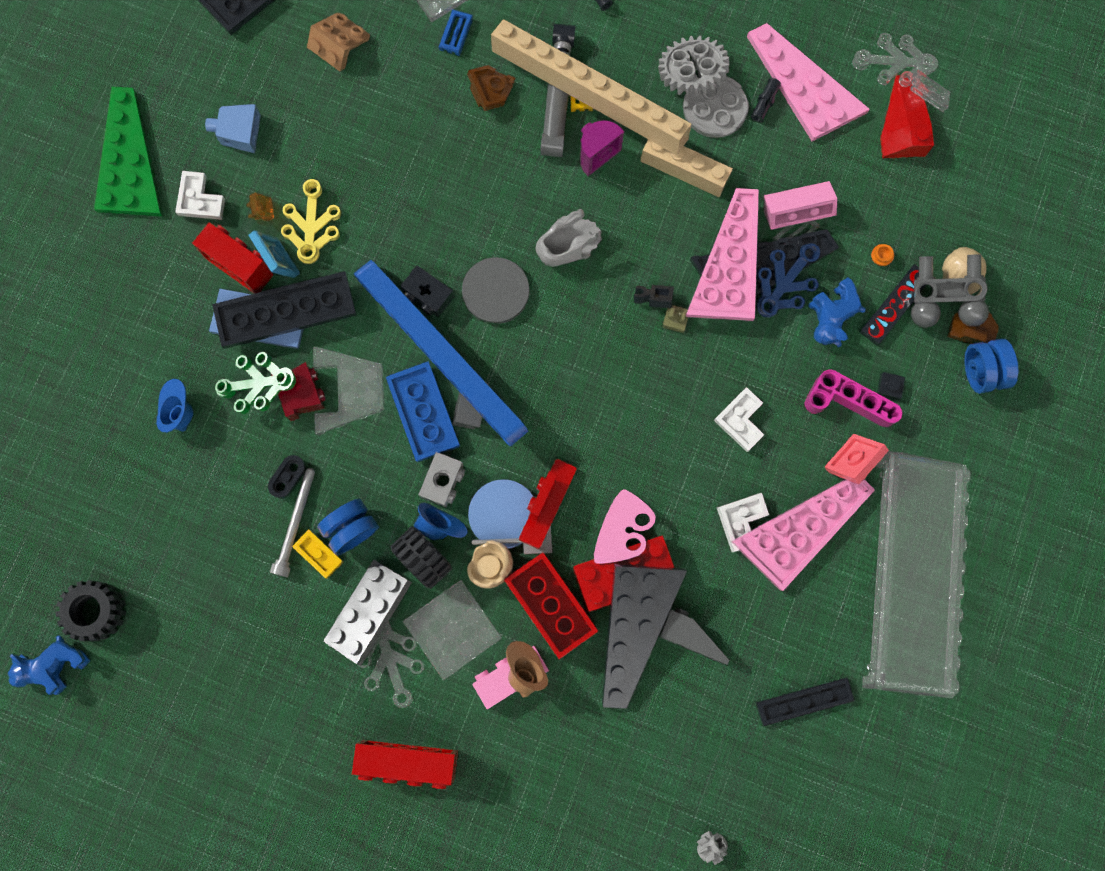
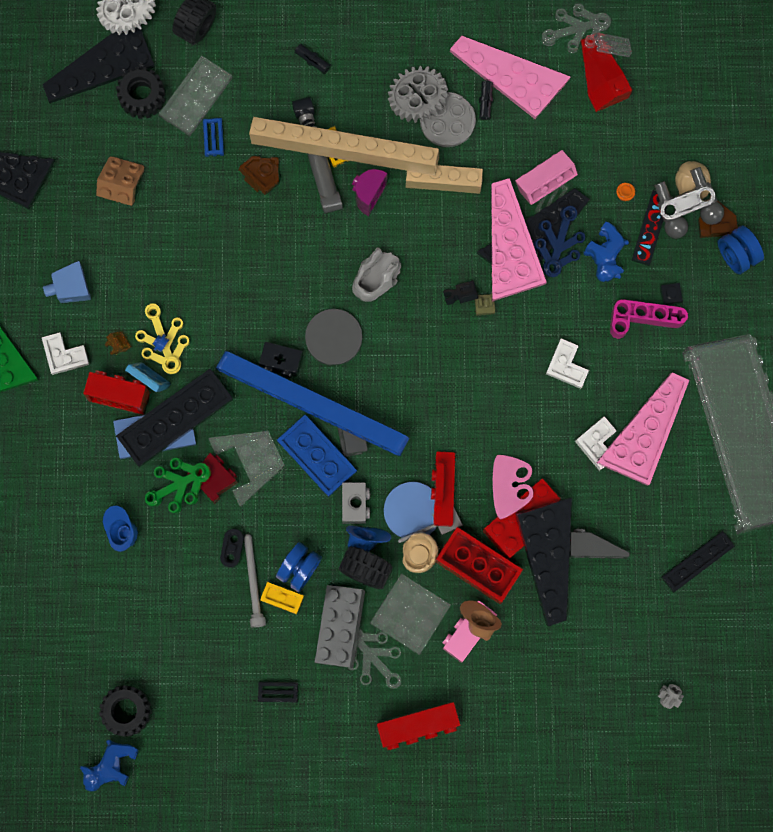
camera: 25 degrees left, 0 degrees up
(288, 665) = (285, 692): none -> black tile
(304, 223) = (160, 342): none -> blue plate
(856, 459) = (666, 361): coral plate -> none

